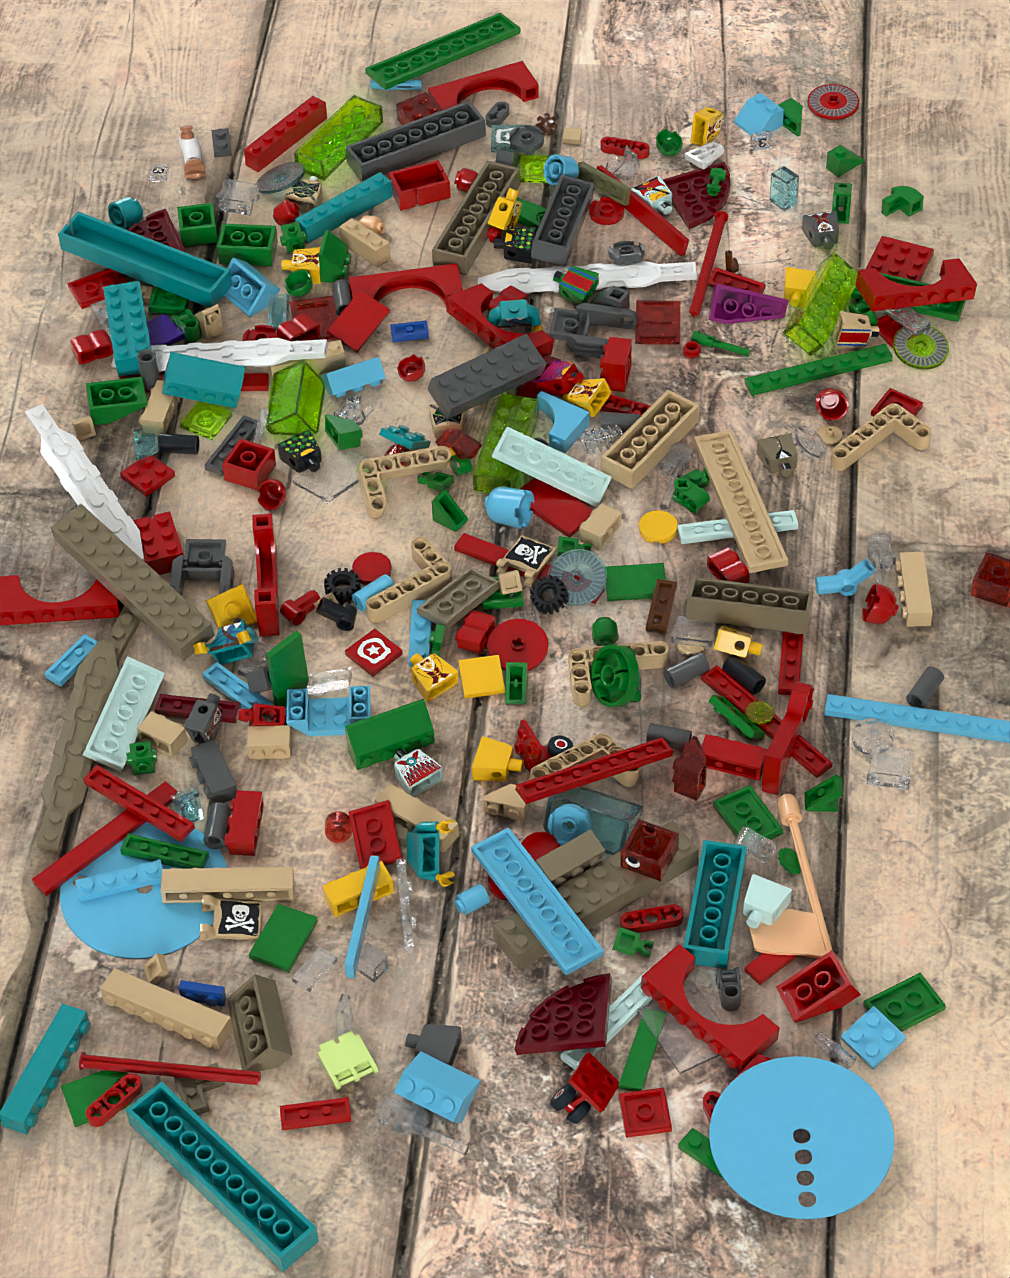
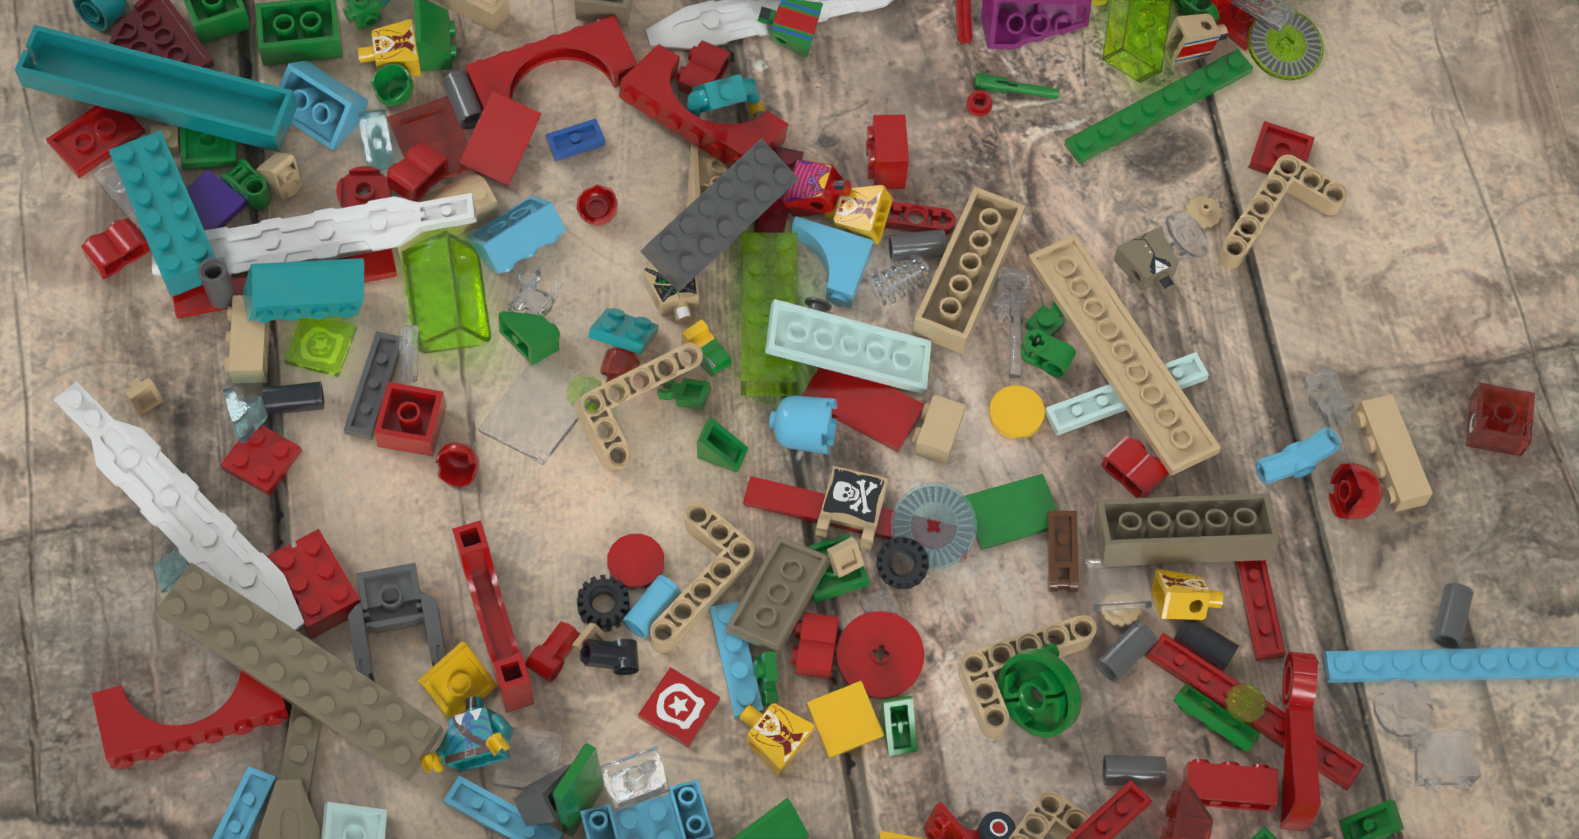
camera: 20 degrees left, 15 degrees up
(115, 399) = (179, 339): green slope -> none
(301, 452) = (479, 381): black torso -> none
(461, 443) = (710, 332): clear red slope -> none
(566, 544) = (907, 474): green plate -> none
(574, 326) = (807, 93): dark grey plate -> none
(604, 631) = (997, 610): green head -> none
(613, 297) = (847, 42): dark grey slope -> none
(657, 322) = (917, 62): clear red piece -> none
(831, 404) = (1198, 165): red helmet -> none

